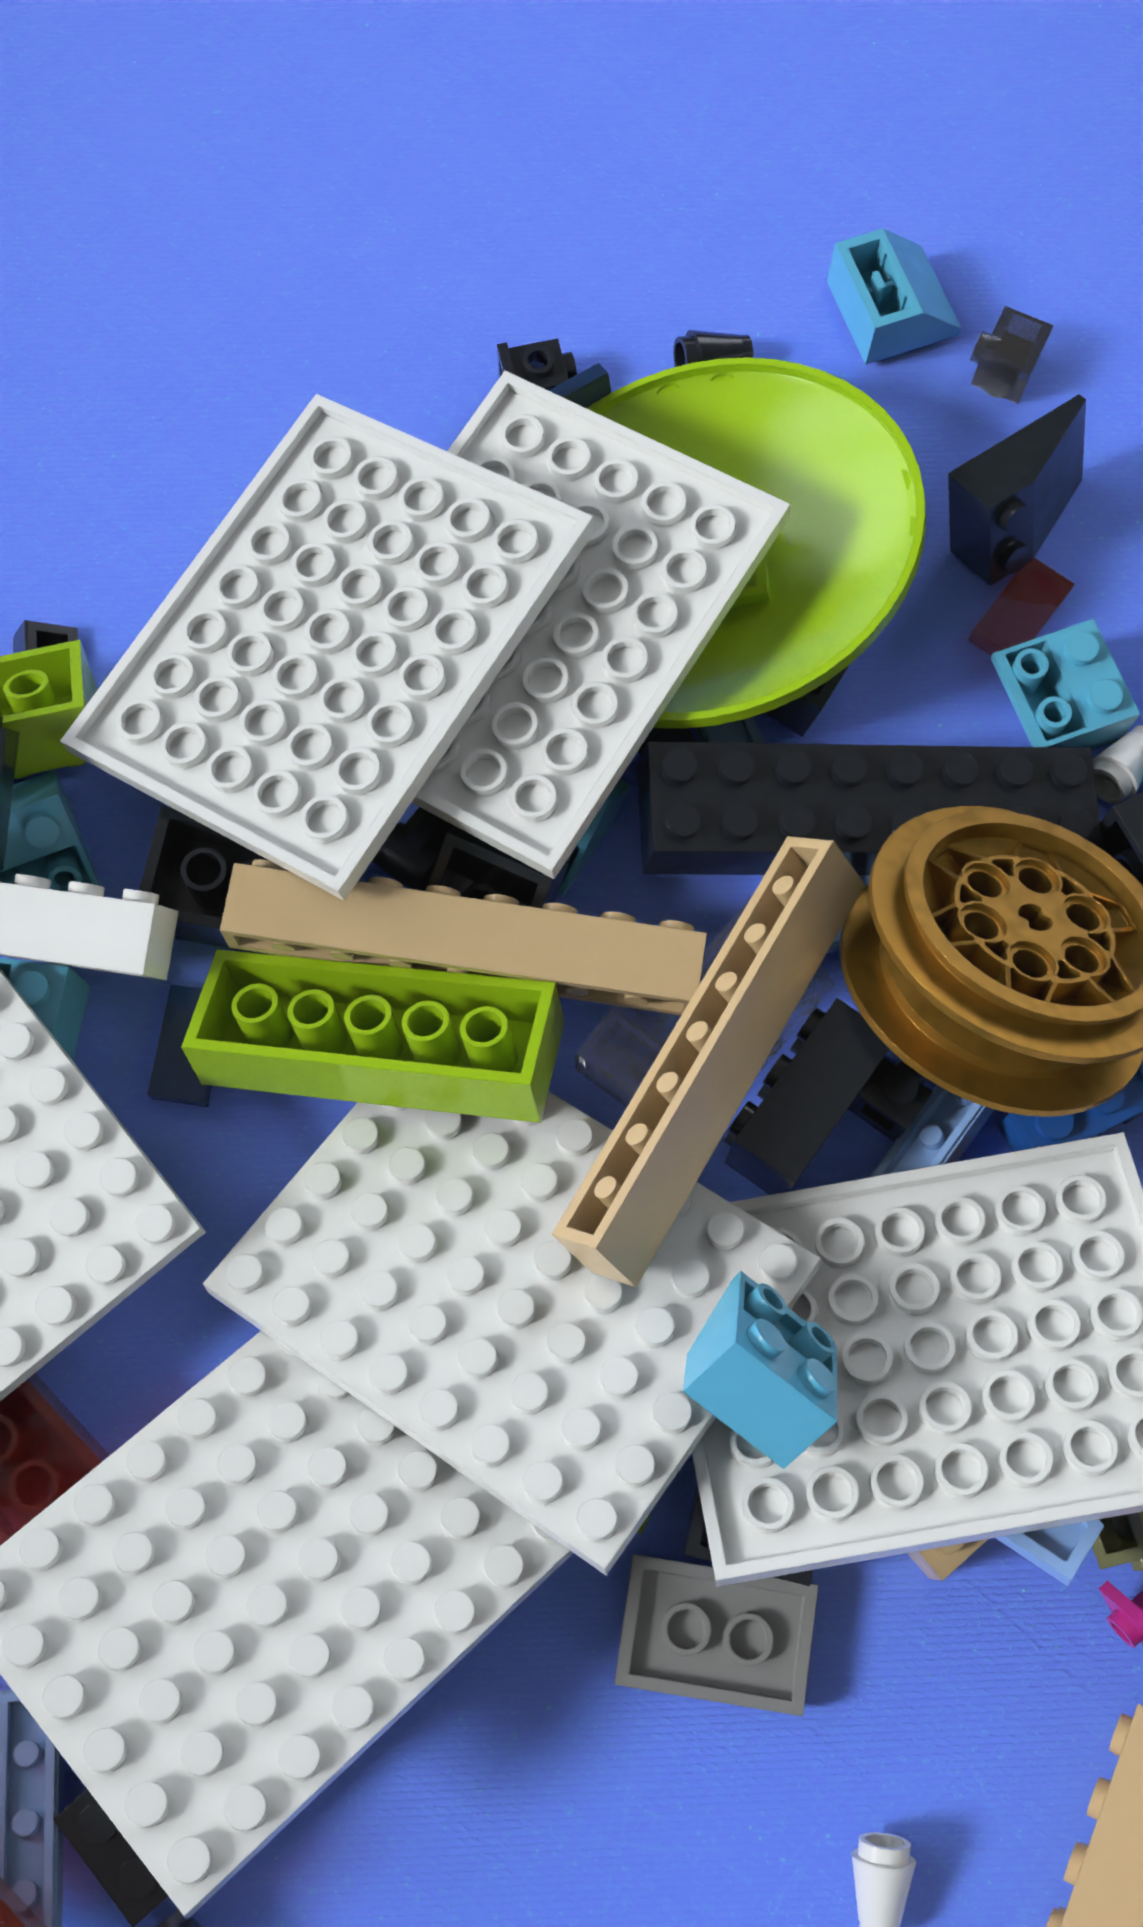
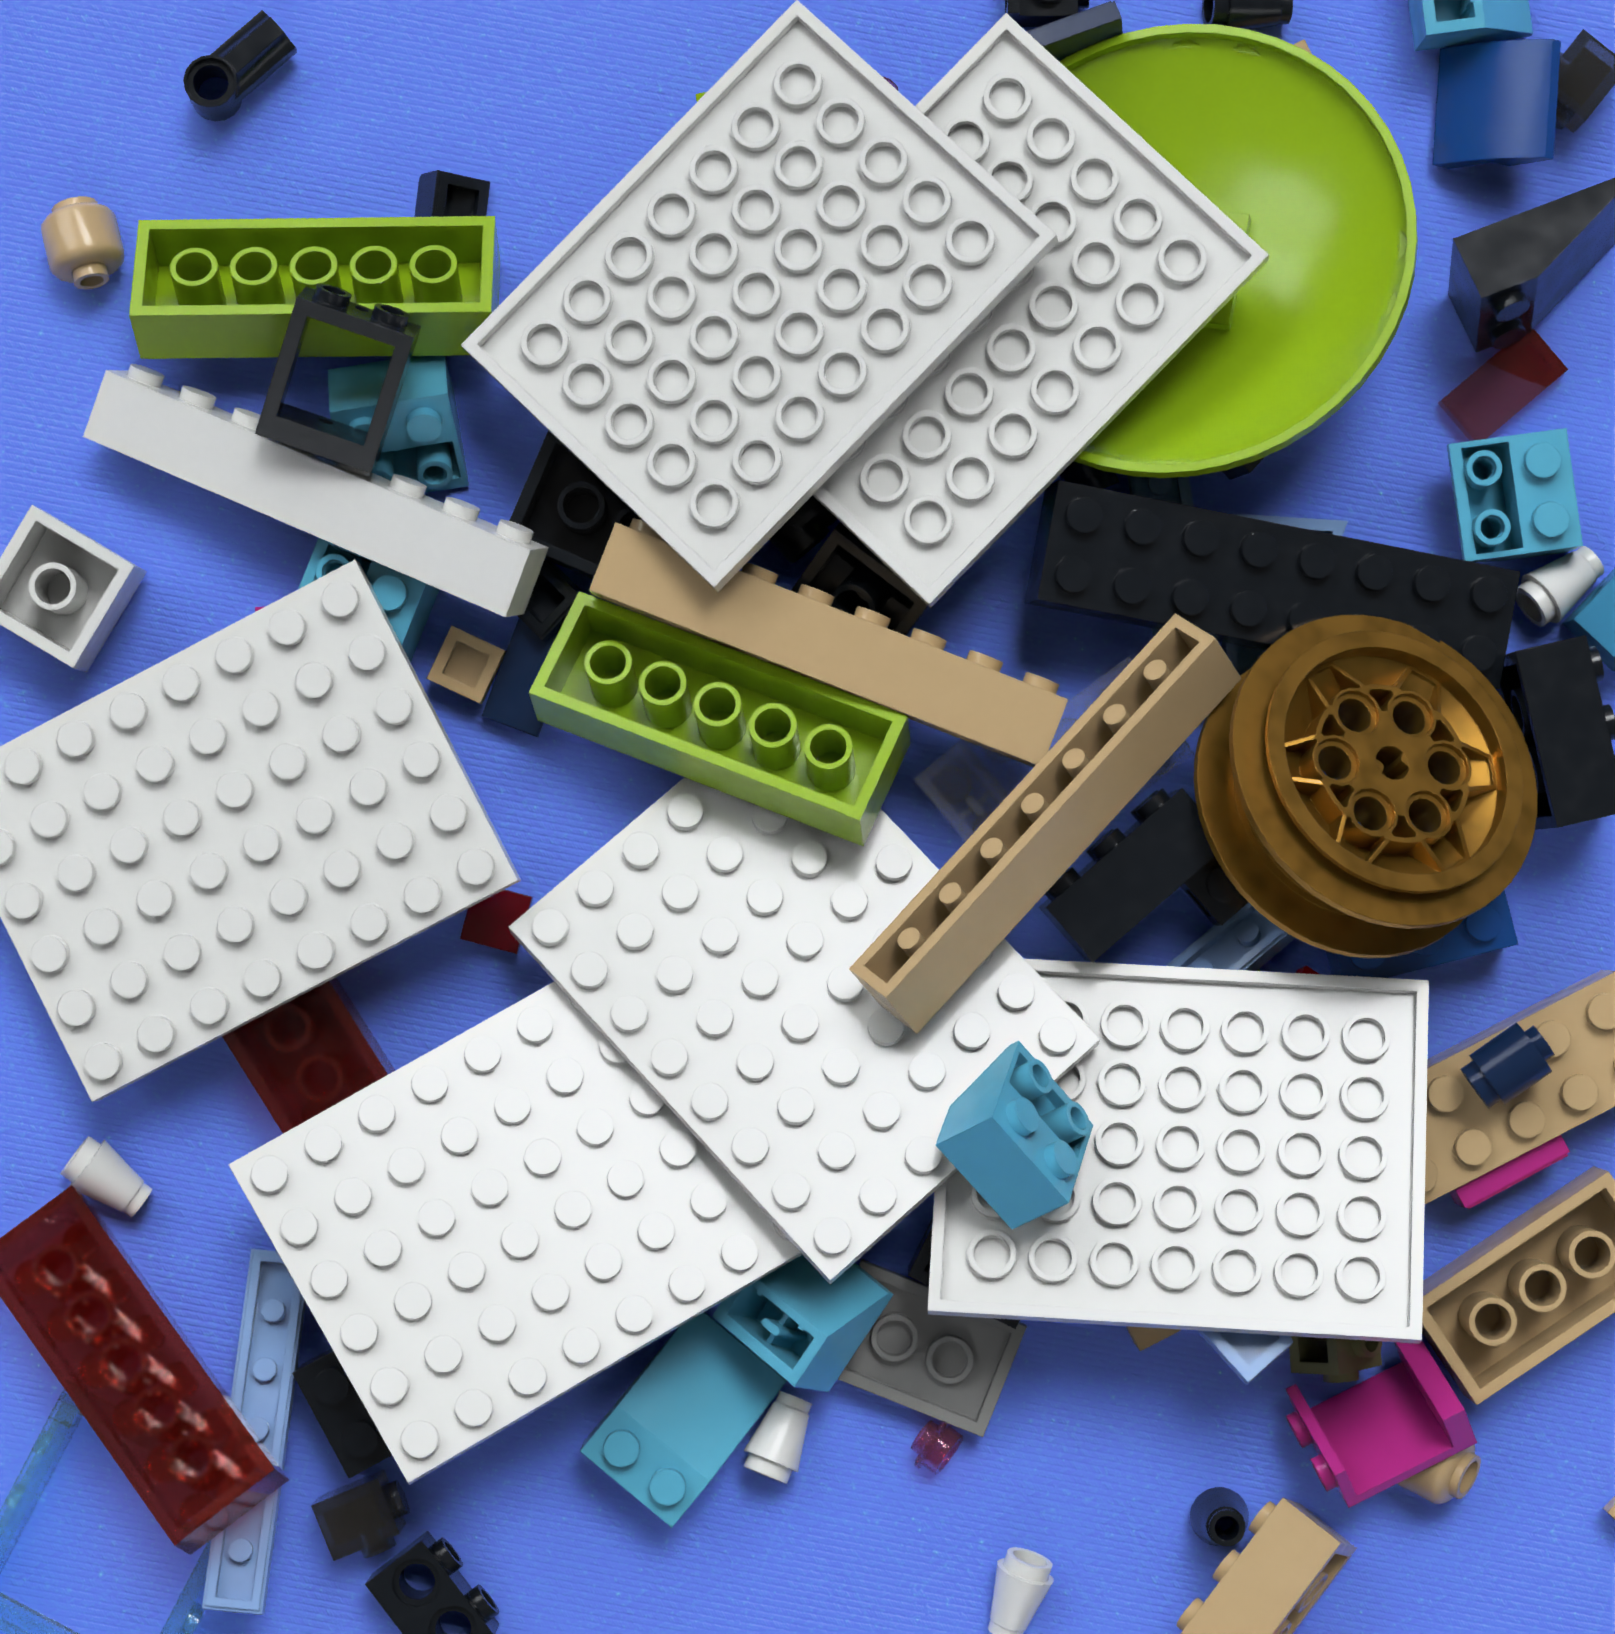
camera: 15 degrees right, 15 degrees up
(124, 1050) = (466, 665): none -> tan plate
(185, 1293) = (489, 920): none -> dark red tile
(186, 971) = (549, 601): none -> black slope
(483, 1771) = (683, 1417): none -> medium azure slope
(589, 1627) = (804, 1322): none -> medium azure slope
(590, 1770) = (779, 1439): none -> white cone
(756, 1738) = (936, 1446): none -> clear pink plate
(949, 379) = (1496, 103): none -> blue slope
(1056, 1746) = (1212, 1506): none -> black cone

